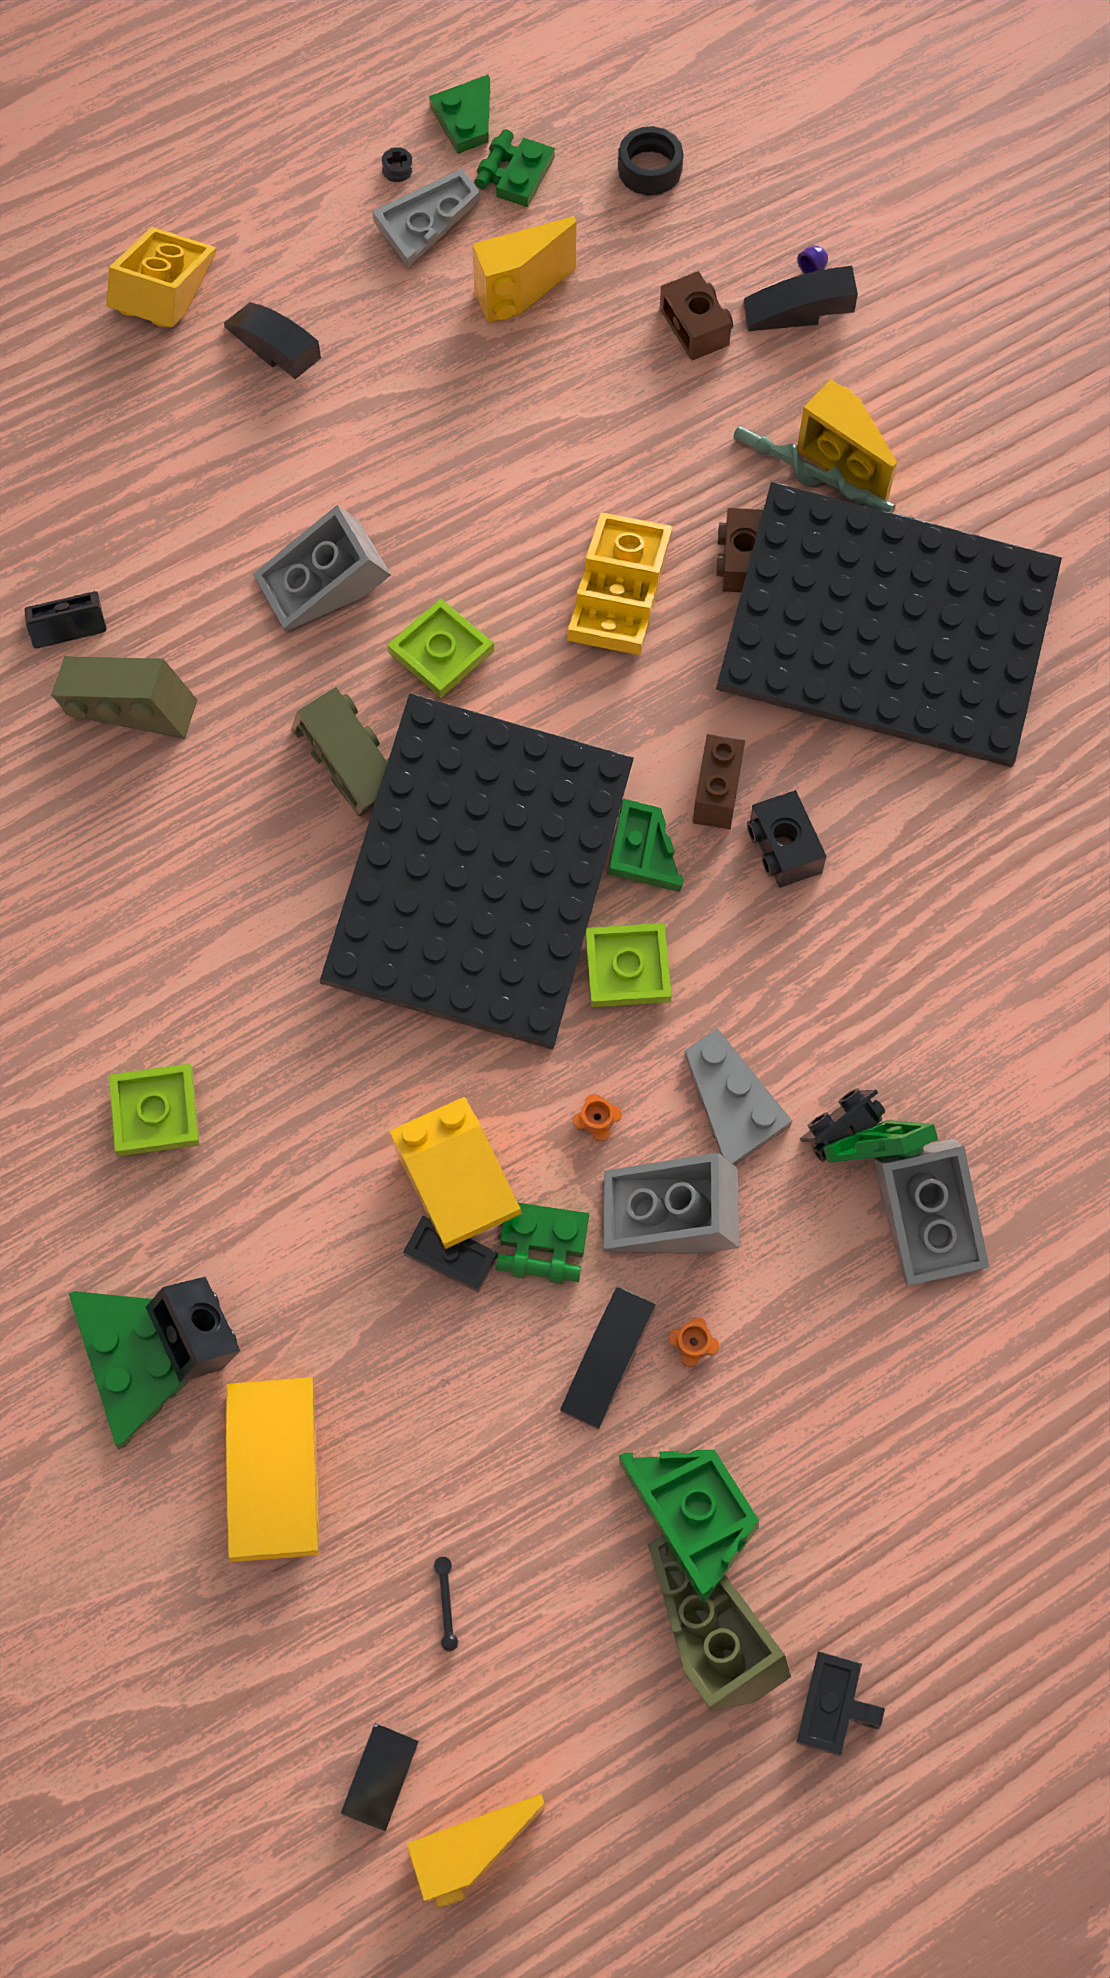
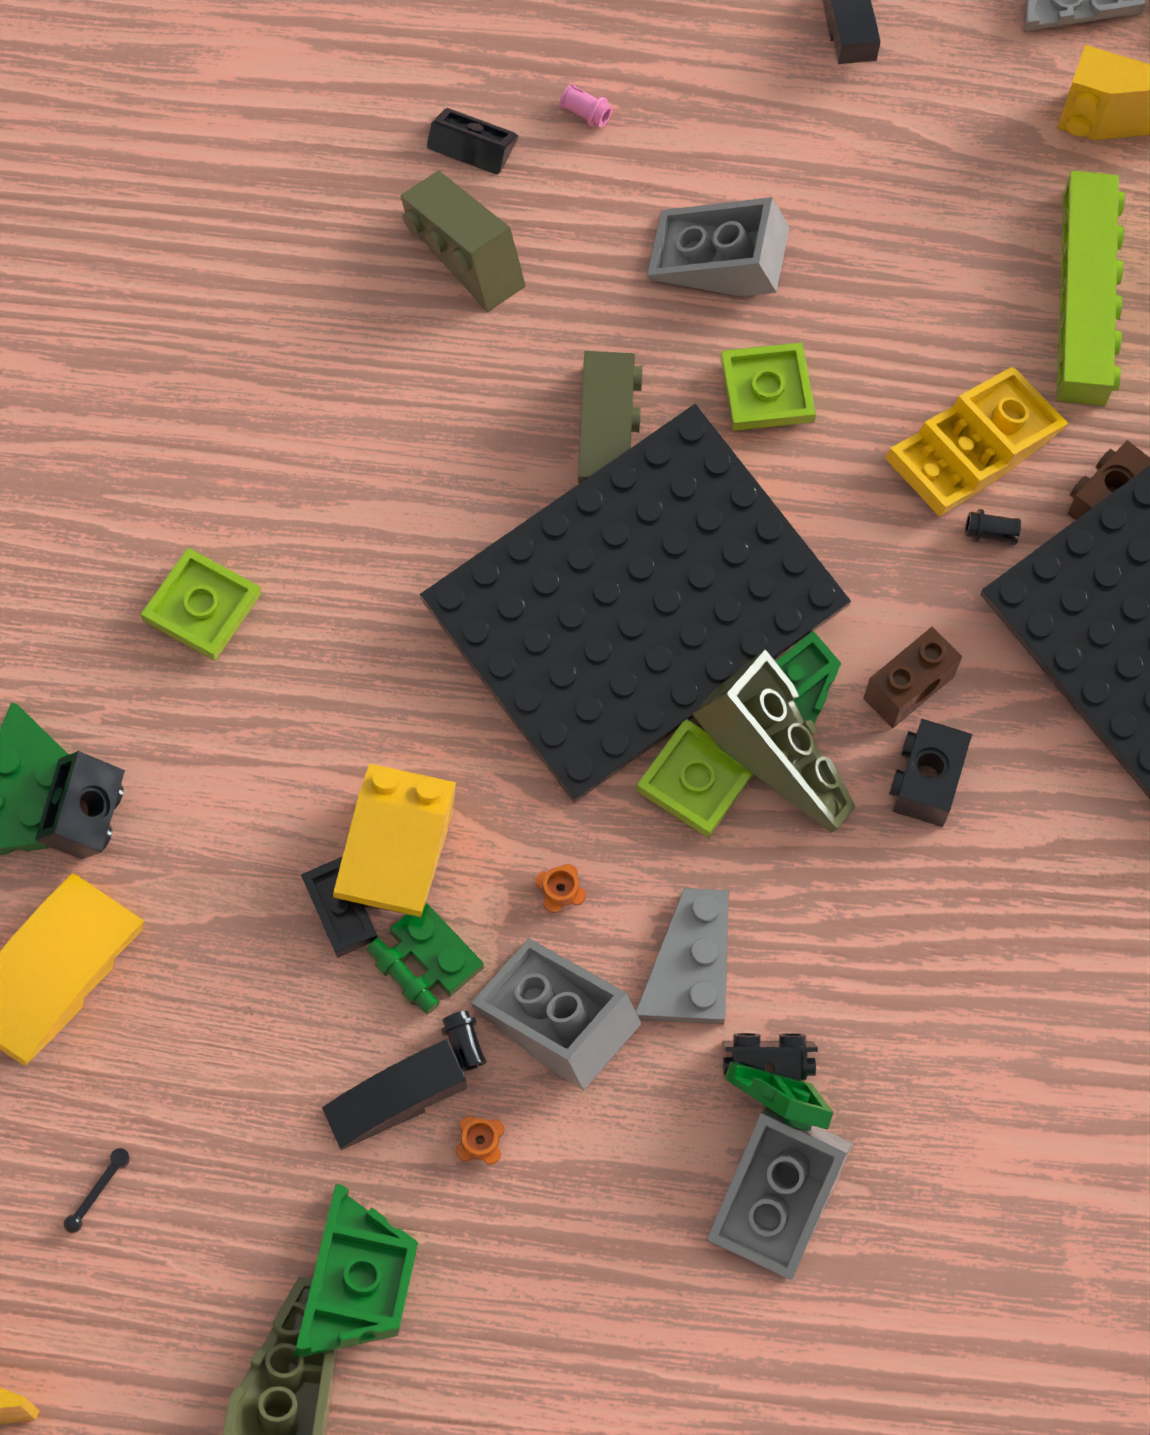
camera: 35 degrees right, 0 degrees up
(133, 534) = (594, 110): none -> bright pink pin
(608, 420) = (1089, 289): none -> lime brick
(615, 1274) = (463, 1040): none -> black pin
(649, 896) = (762, 729): none -> olive wedge
(675, 640) = (992, 527): none -> black pin

